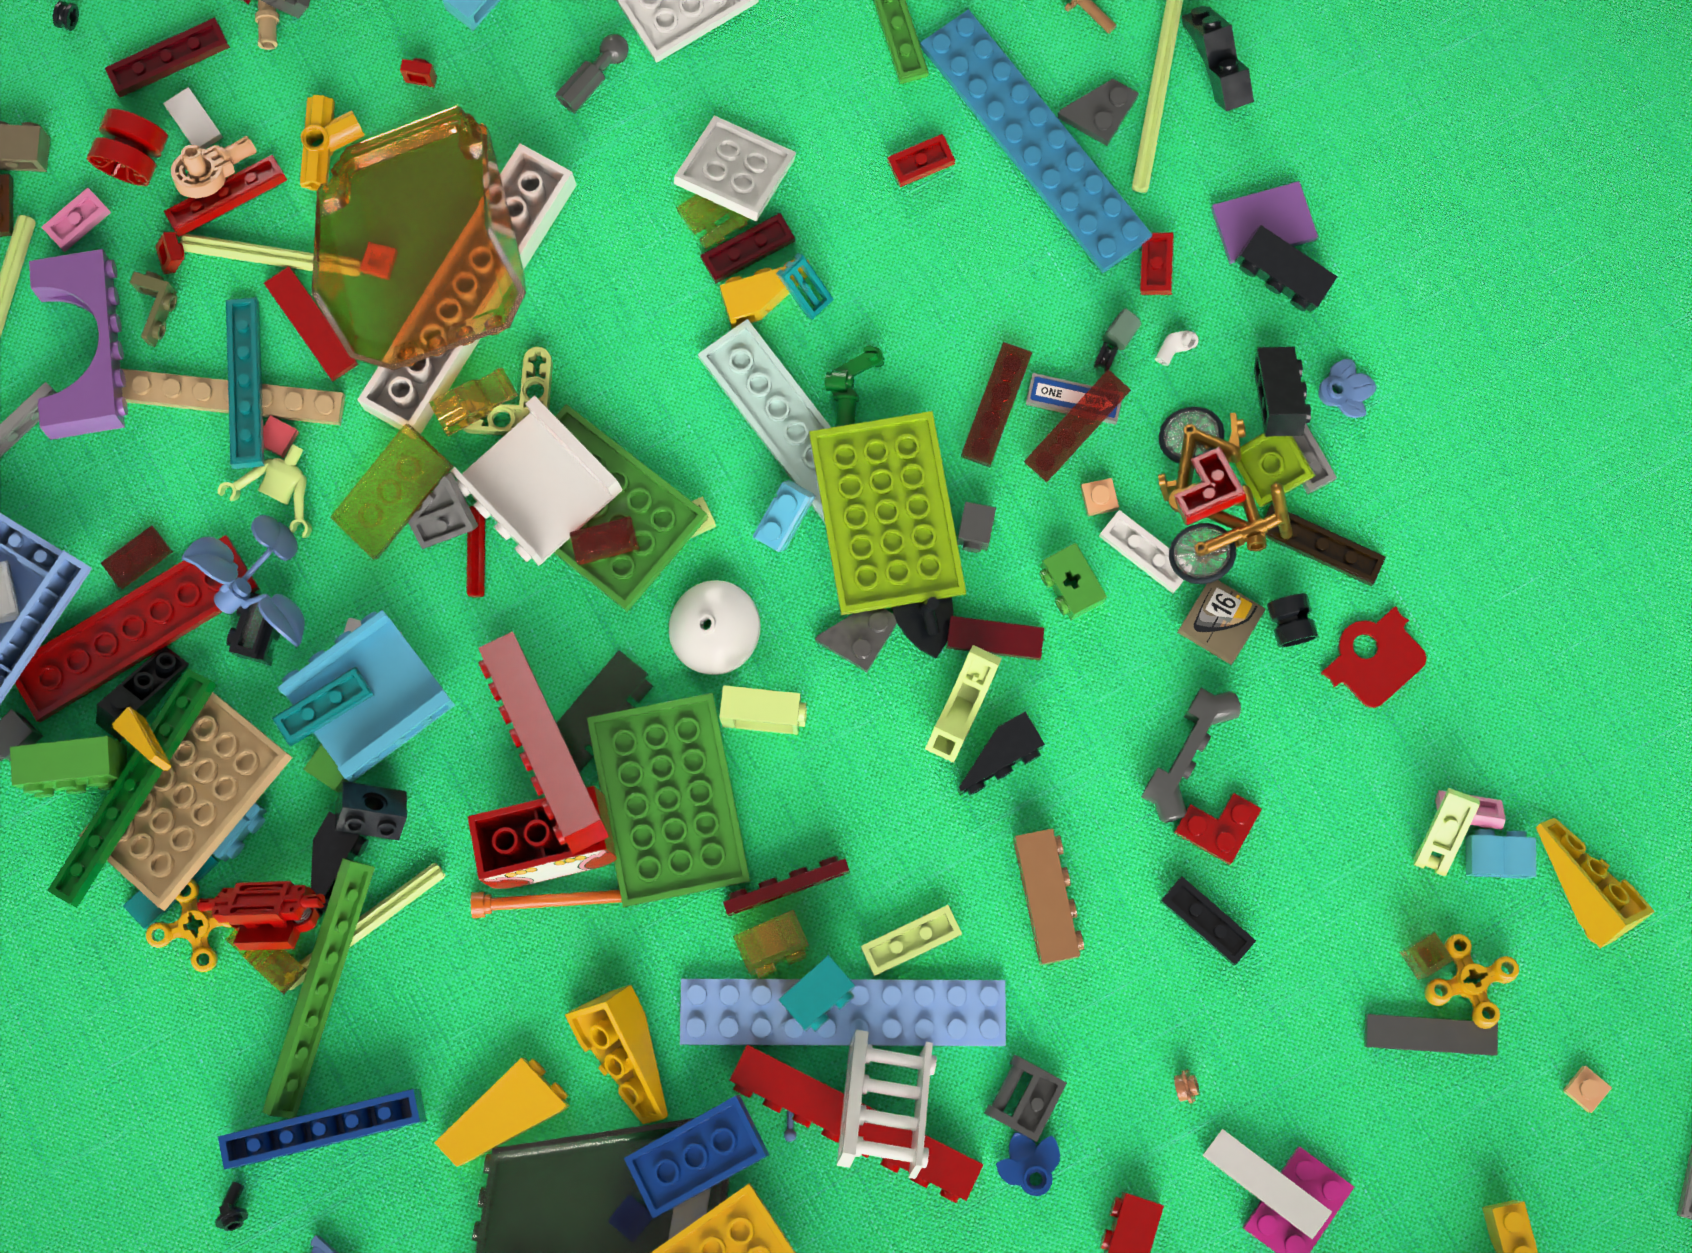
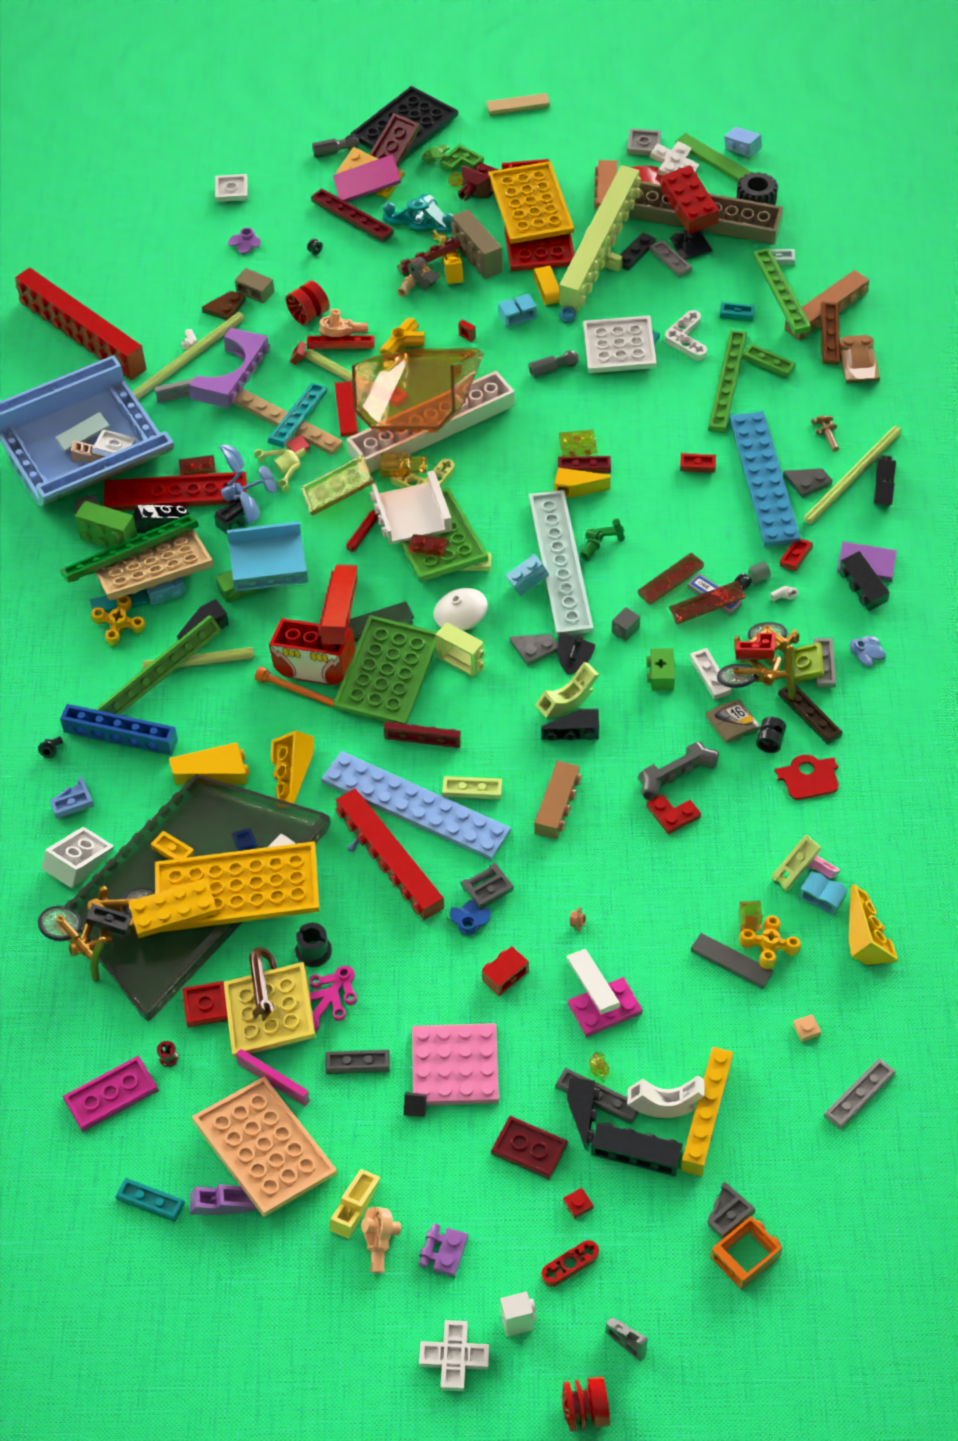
camera: 30 degrees right, 25 degrees down
(76, 219) = (264, 324): bright pink plate -> none
(140, 735) = (148, 525): yellow slope -> none
(165, 302) = (281, 370): olive bracket -> none
(167, 57) = (358, 280): dark red plate -> none
(193, 119) = (346, 306): white tile -> none
(266, 913) = (157, 620): red piece -> none
(275, 965) = (143, 647): clear yellow piece -> none
(322, 706) = (243, 552): teal tile -> none
(370, 810) = (236, 606): black brick -> none
(442, 514) = (356, 504): flat silver wing -> none
(696, 1156) = (295, 821): blue plate -> none
(734, 168) = (598, 425): white plate -> none
(772, 944) = (398, 750): clear yellow brick -> none
(796, 294) = (595, 488): teal tile -> none
(818, 994) = (406, 776): teal piece -> none
(856, 1114) = (401, 827): white fence -> none
(887, 513) = (581, 595): lime plate -> none
(995, 637) = (609, 679): dark red tile -> none
(1099, 497) = (700, 641): light nougat plate -> none
(1207, 921) = (638, 850): black plate -> none
(1281, 391) = (826, 628): black brick -> none

